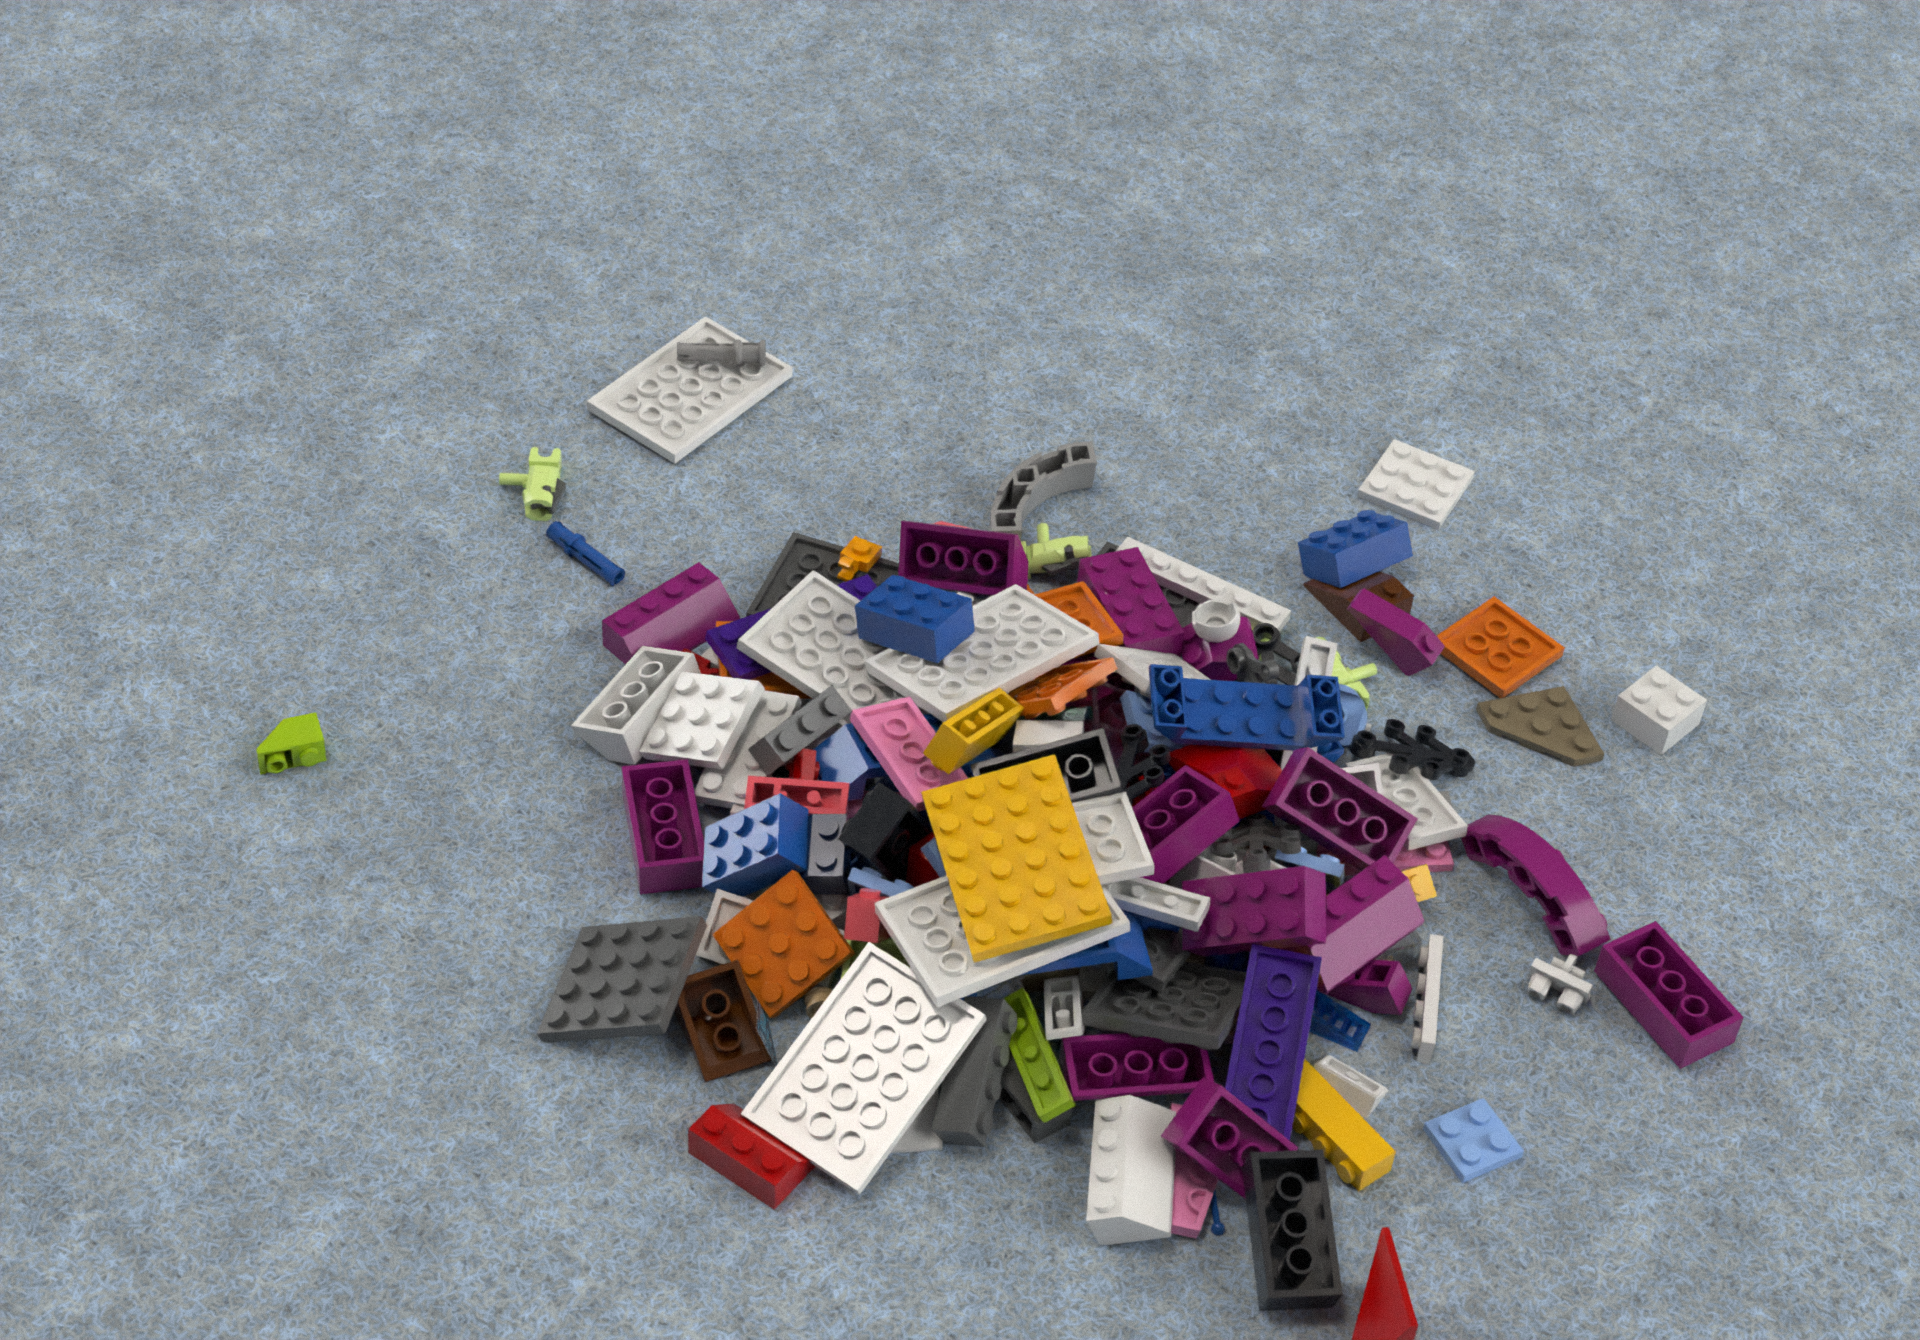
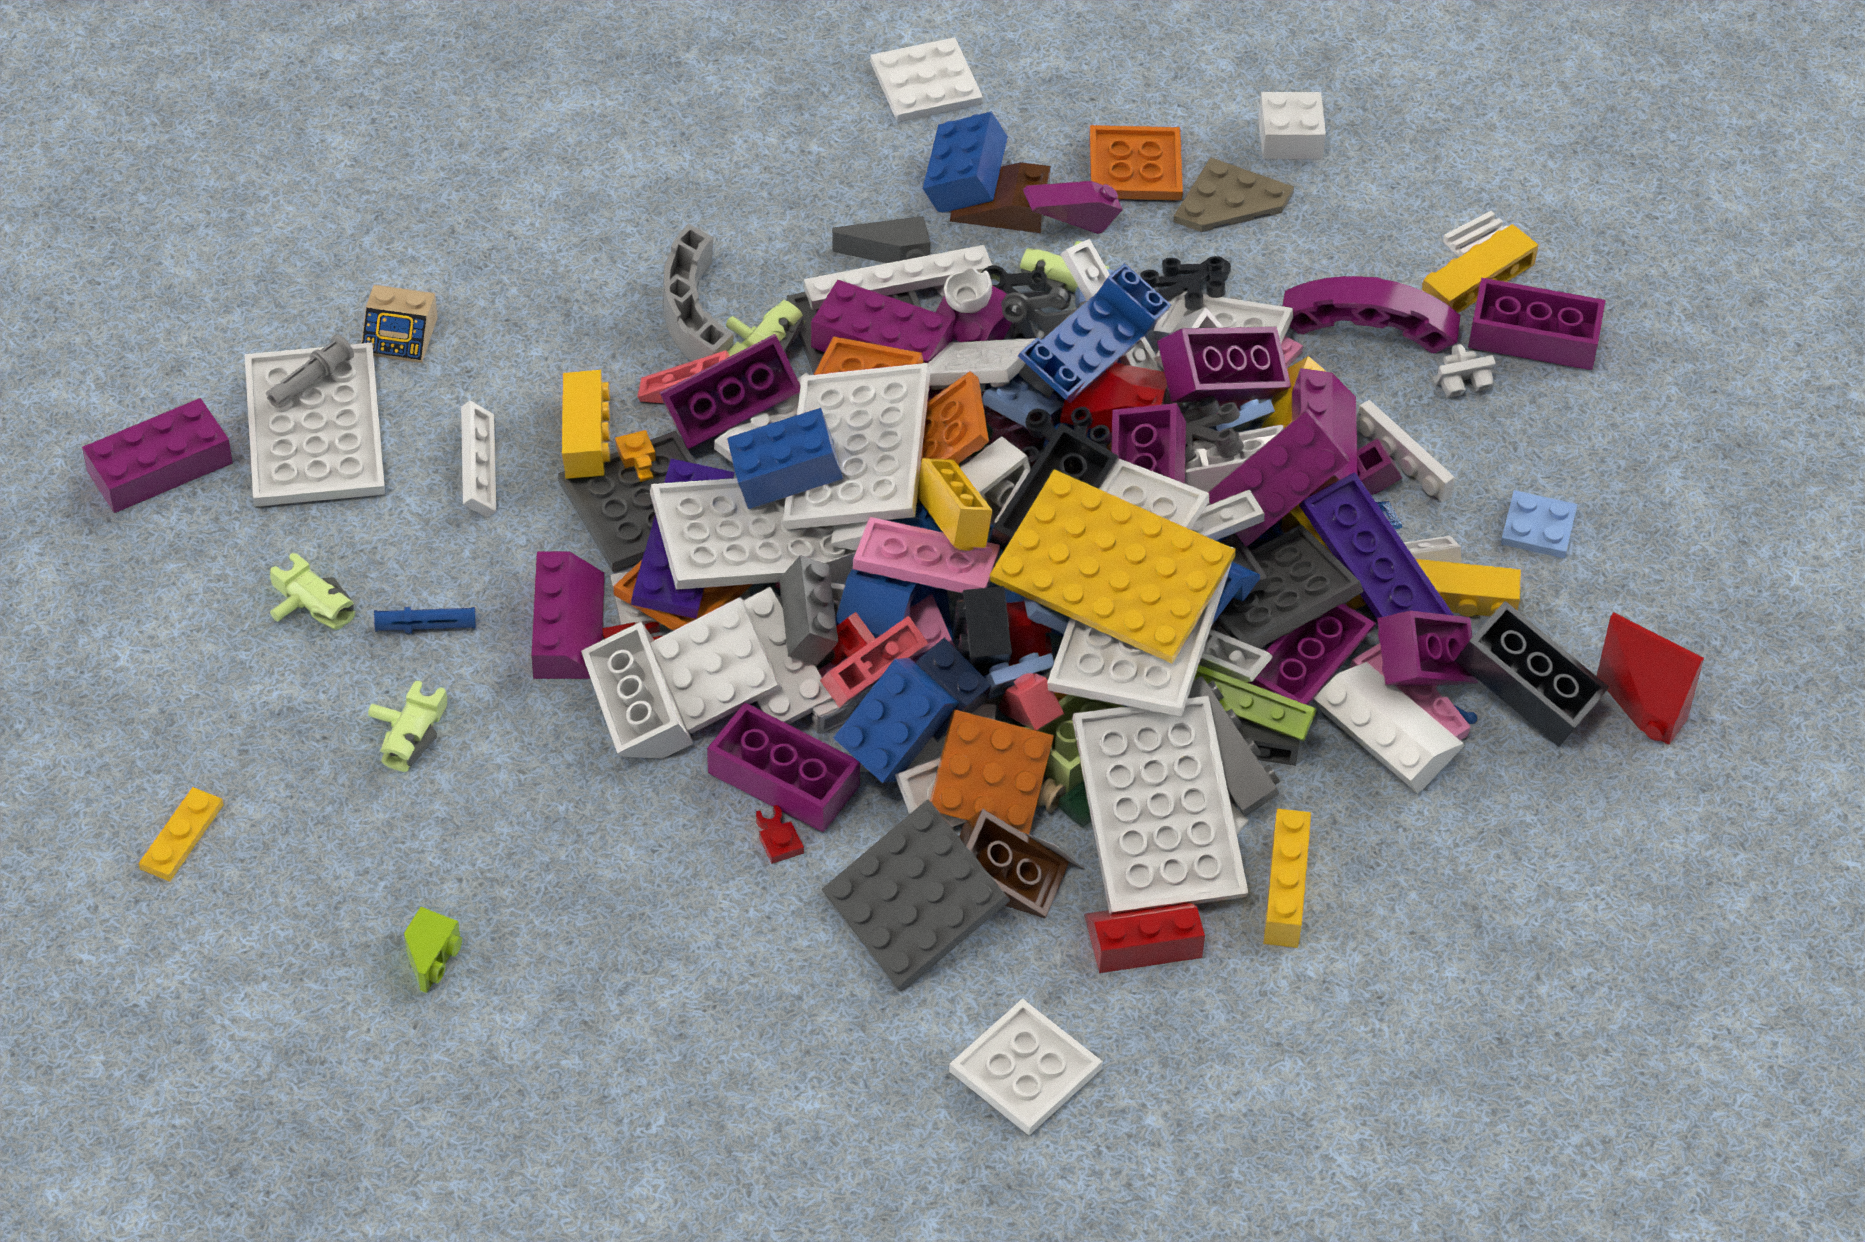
camera: 45 degrees left, 5 degrees up
(264, 559) = (181, 834): none -> yellow plate
(482, 607) = (411, 728): none -> yellowish green piece
(541, 1163) = (1025, 1066): none -> white plate
(568, 333) = (157, 455): none -> magenta brick
(606, 874) = (777, 838): none -> red plate
(757, 485) = (478, 459): none -> white plate
(827, 369) = (399, 322): none -> slope
(848, 513) = (584, 424): none -> yellow brick
(903, 1207) = (1287, 878): none -> yellow brick
(1230, 558) = (883, 240): none -> dark grey slope
(1690, 923) = (1497, 258): none -> yellow brick
(1715, 895) = (1471, 232): none -> white tile

